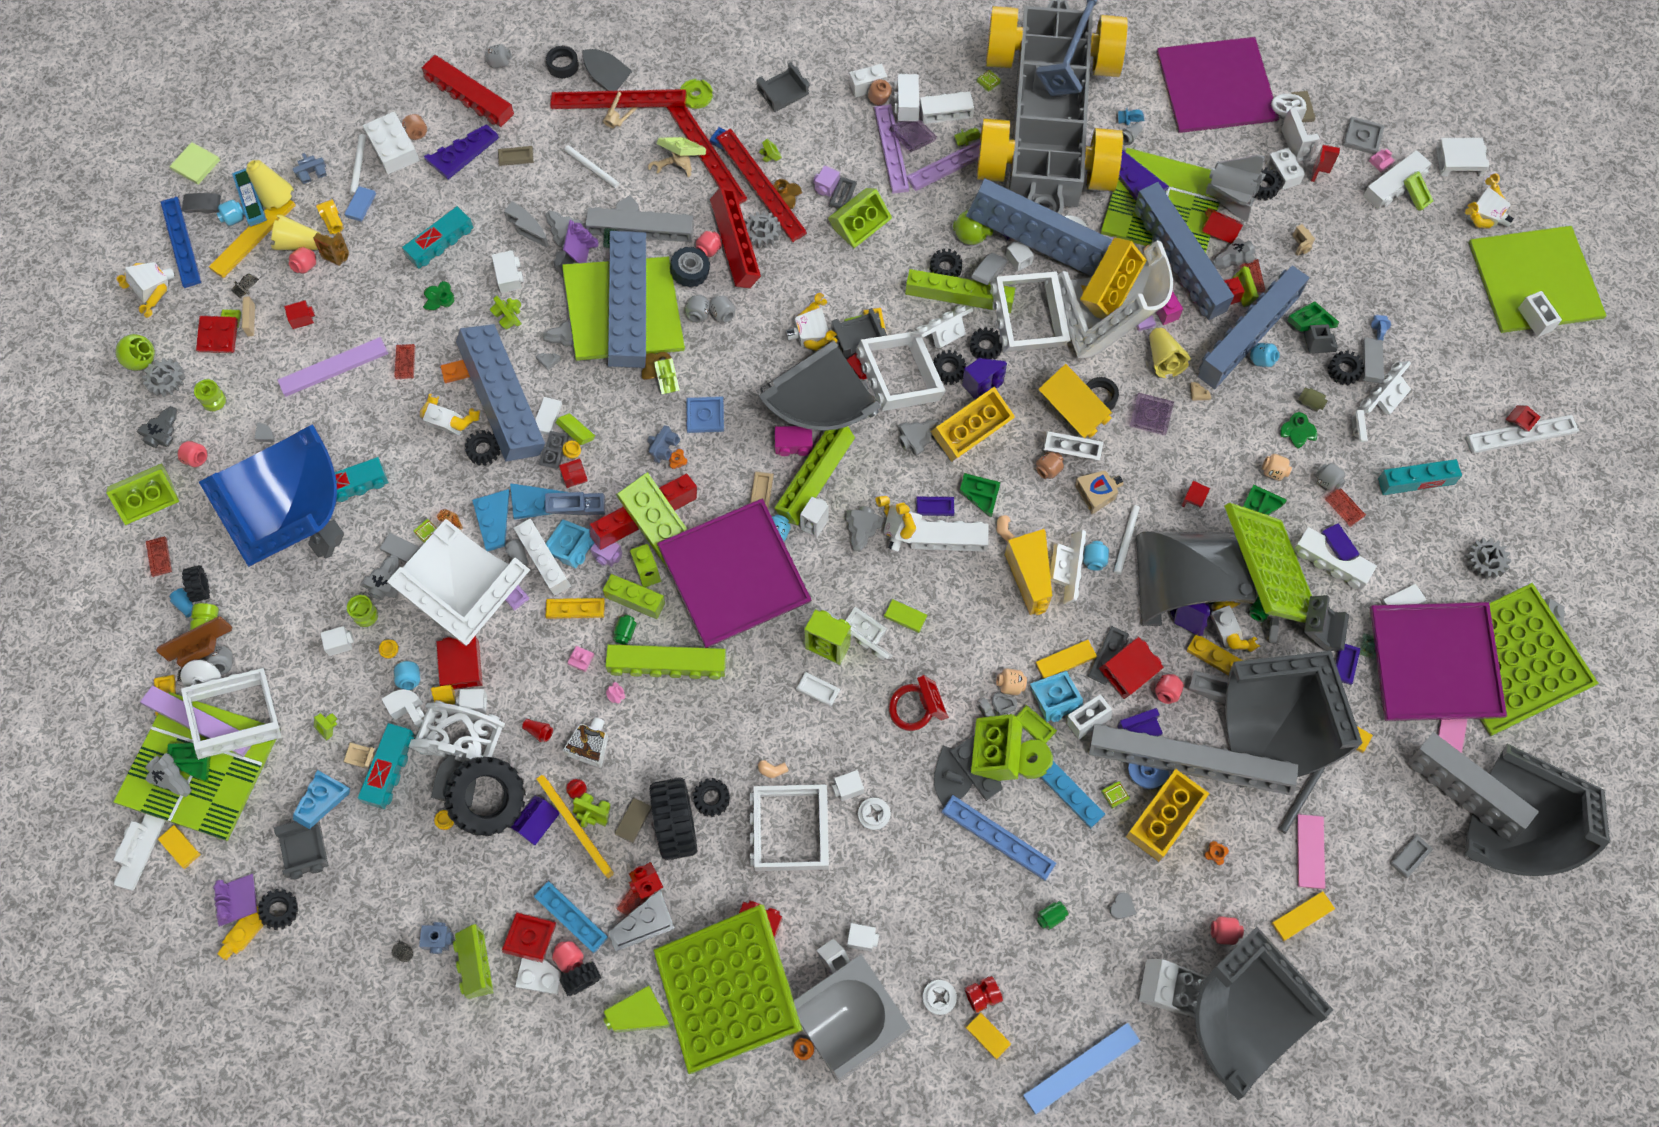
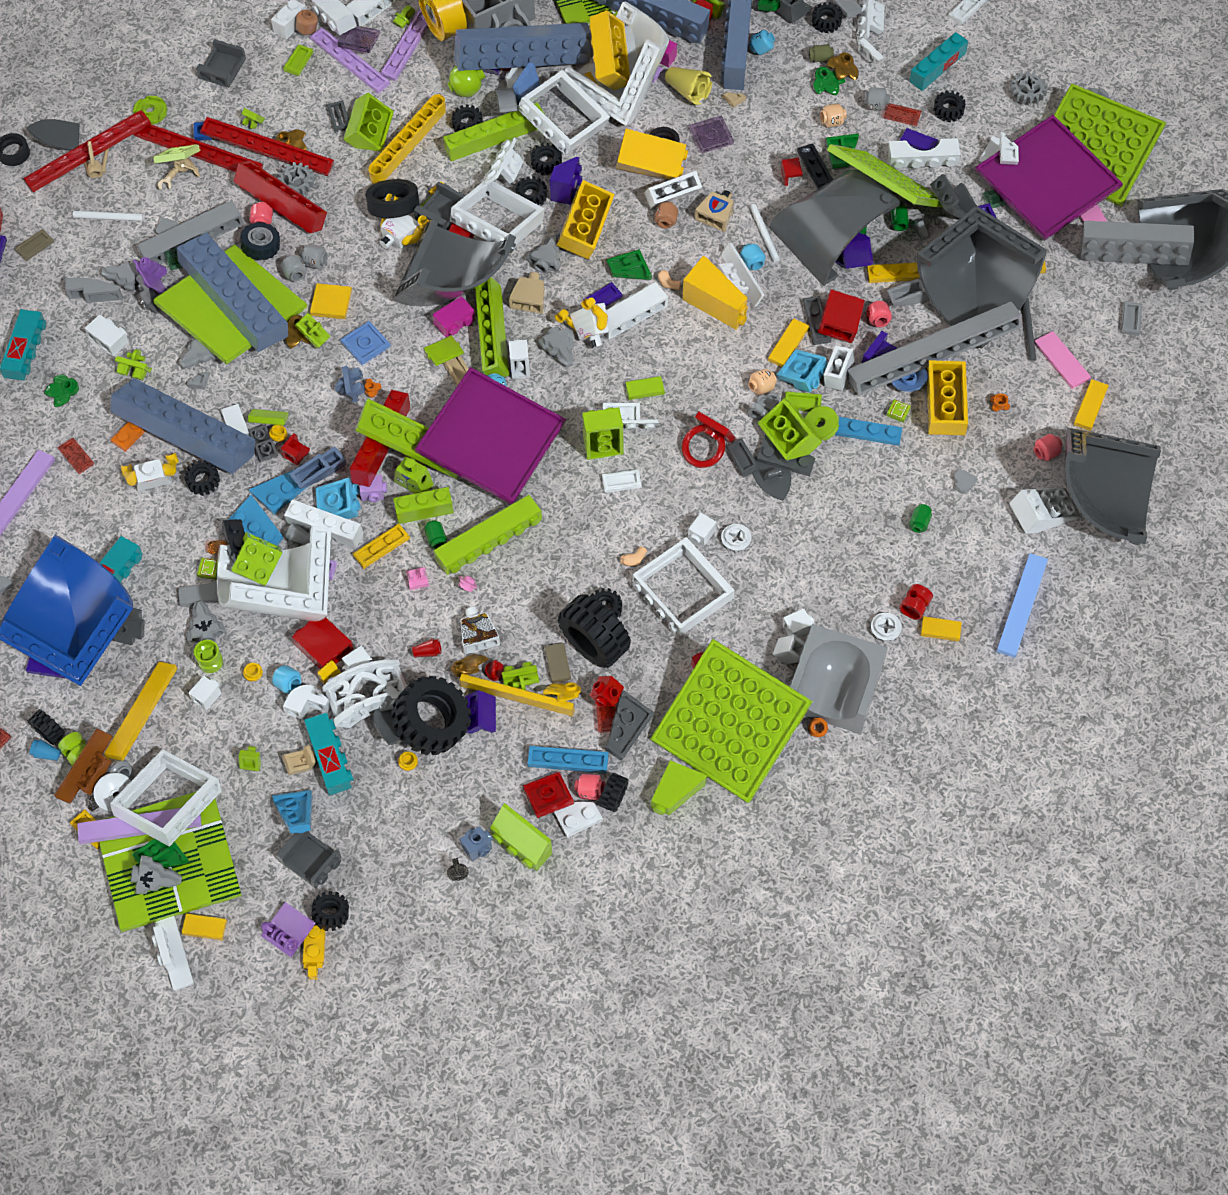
camera: 35 degrees left, 5 degrees down
(275, 621) = (140, 711): none -> yellow tile
(461, 524) = (234, 535): none -> black hinge
(464, 550) = (257, 559): none -> lime bracket
(557, 768) = (468, 665): none -> pearl gold plate
(614, 851) = (563, 691): none -> yellow plate
(706, 358) = (331, 301): none -> yellow tile
(762, 465) = (443, 350): none -> lime piece
(826, 181) = (318, 113): lavender brick -> none
(826, 285) = (394, 208): none -> black tyre
(849, 122) = (298, 60): none -> lime tile
(873, 249) = (407, 139): none -> yellow beam
(873, 461) = (528, 294): none -> tan torso
(939, 741) = (742, 457): none -> dark grey tile
(998, 837) = (839, 494): medium blue tile -> none
(1019, 263) = (526, 82): none -> medium blue tile
(1225, 493) = (814, 165): none -> black tile
(1228, 627) = (888, 244): torso -> none
(1323, 426) = (843, 66): none -> pearl gold plate
(1389, 535) = (949, 98): none -> black tyre
(1415, 610) = (1008, 151): none -> white tile

